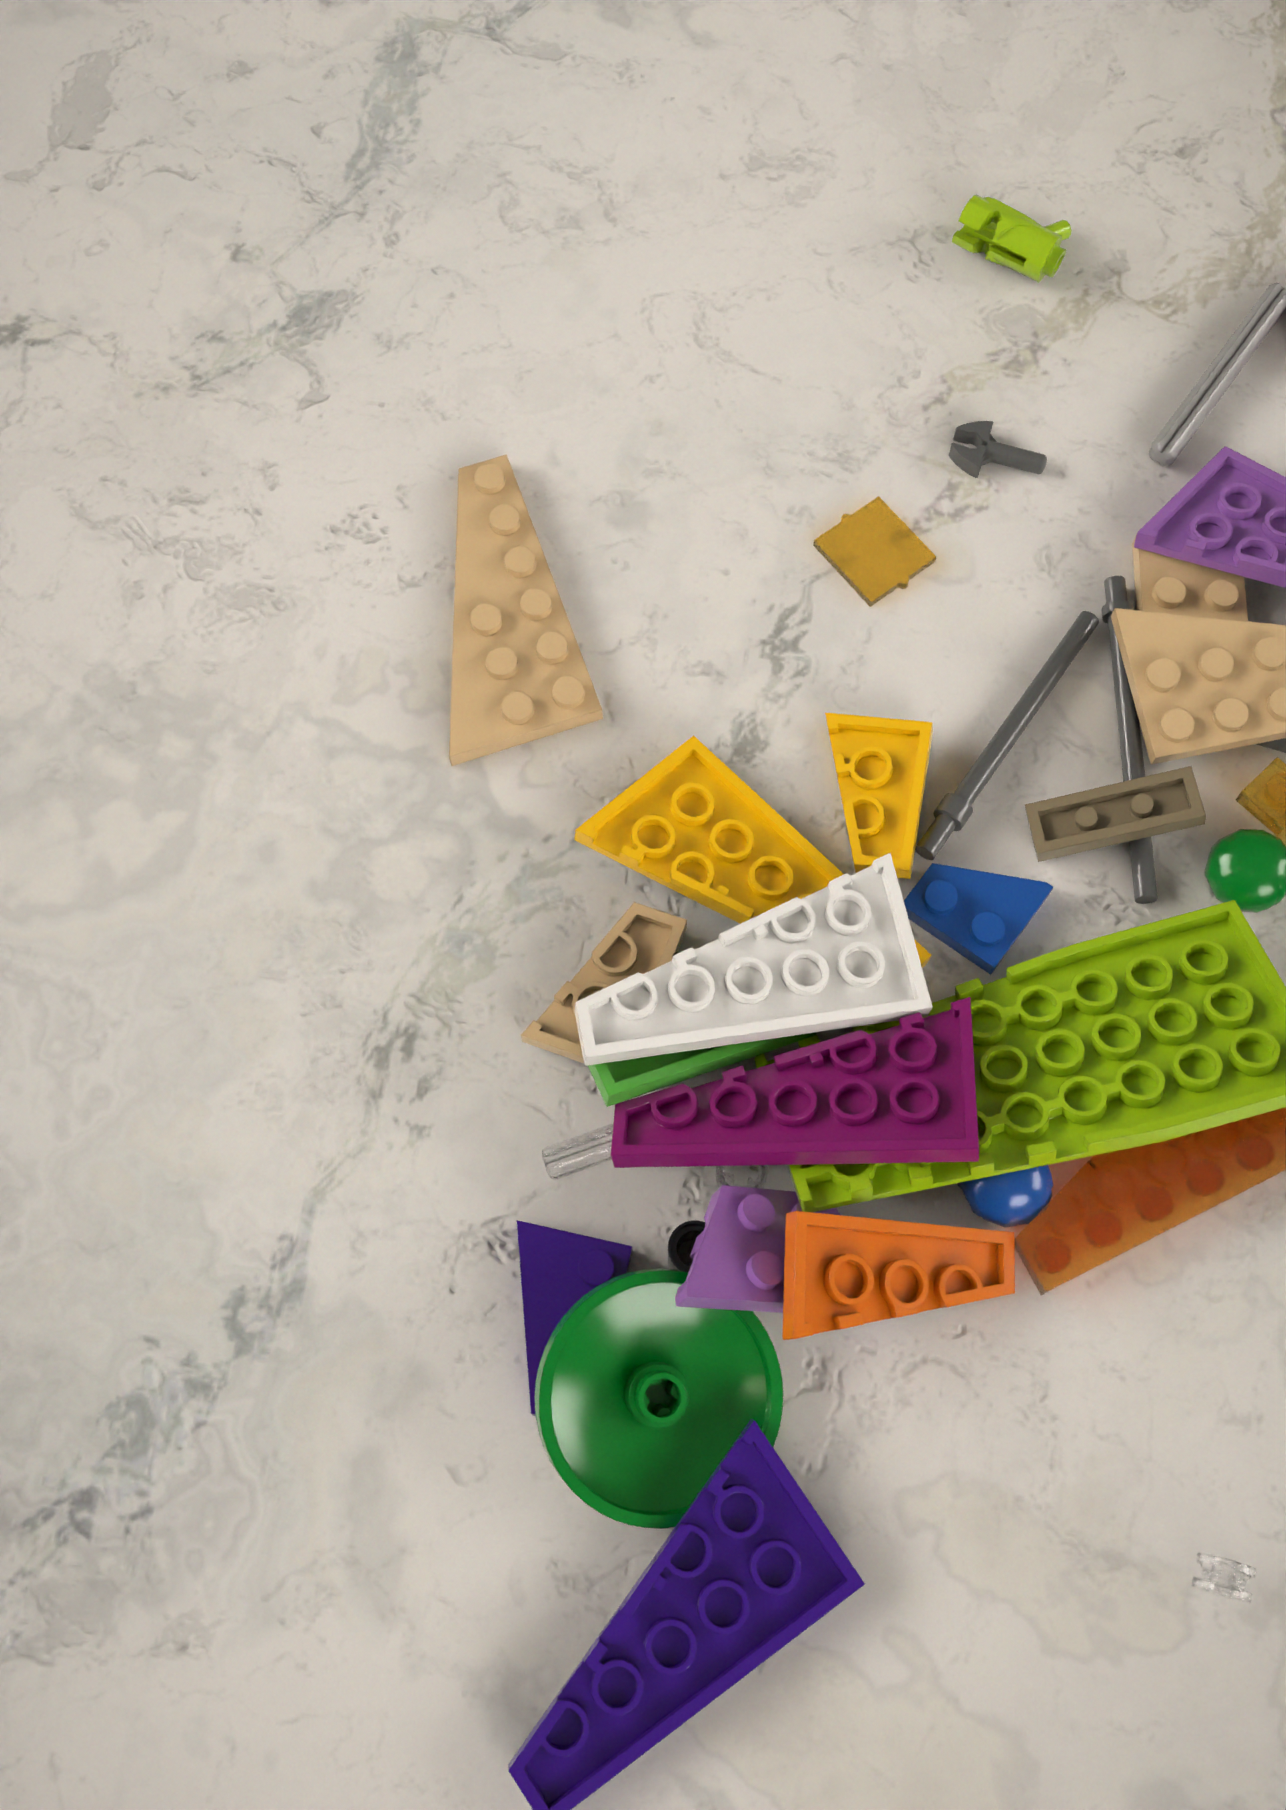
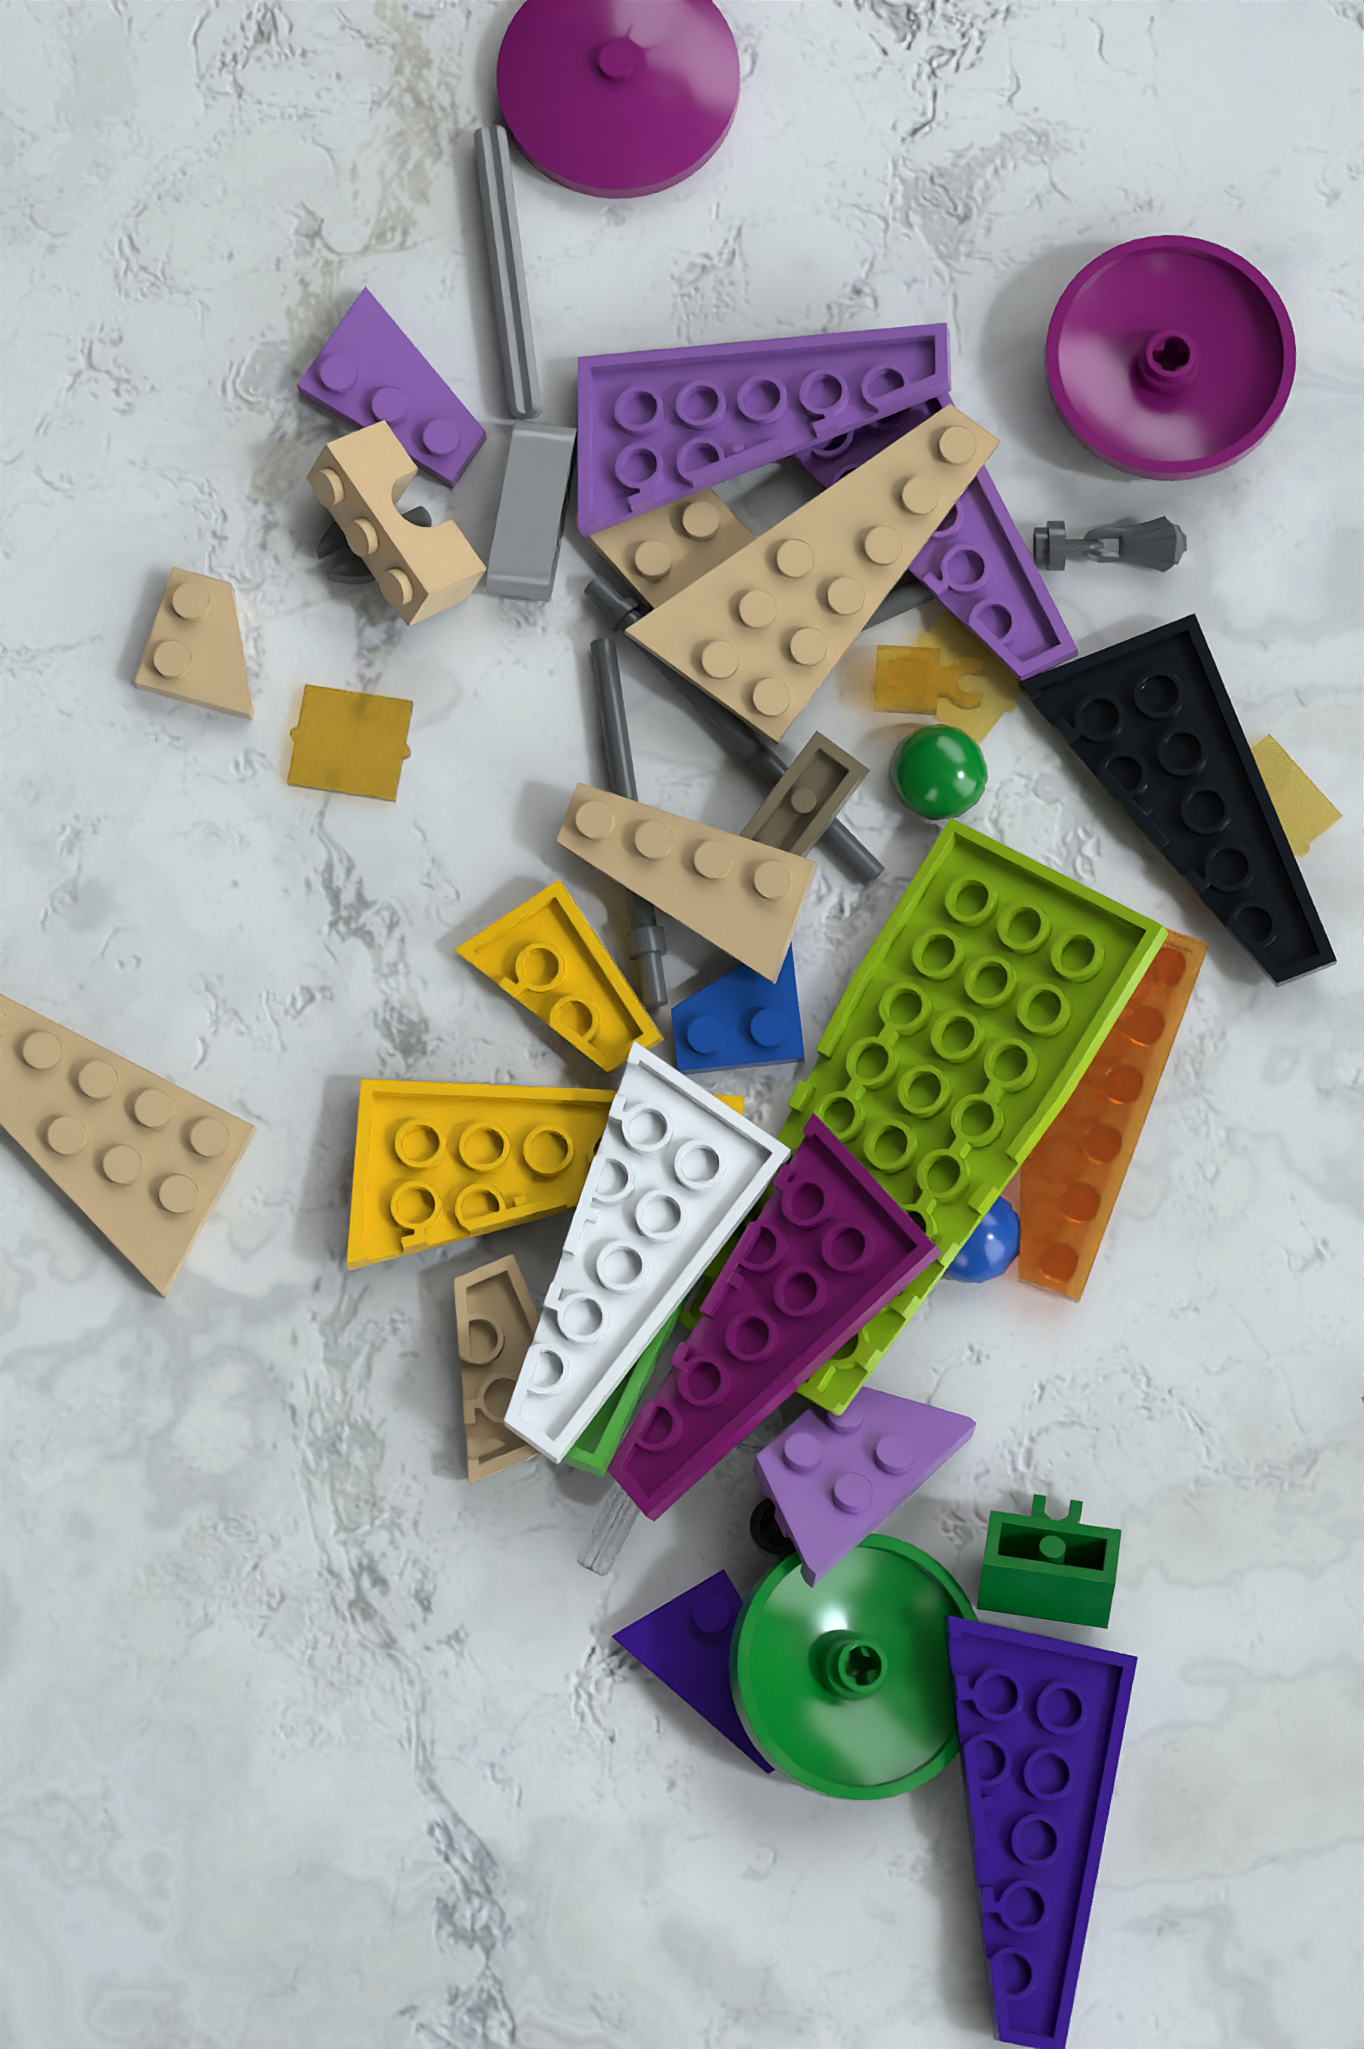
camera: 40 degrees left, 10 degrees up
(832, 426) = (198, 646): none -> tan wing
(858, 1456) = (1049, 1566): none -> green brick
(874, 1269) = (933, 1413): orange wing -> none
(1011, 238) = (192, 294): lime piece -> none
(1012, 476) = (415, 565): none -> tan arch
(1033, 803) = (708, 879): none -> tan wing
(1085, 385) = (377, 375): none -> medium lavender wing
(1113, 507) = (532, 510): none -> light grey beam

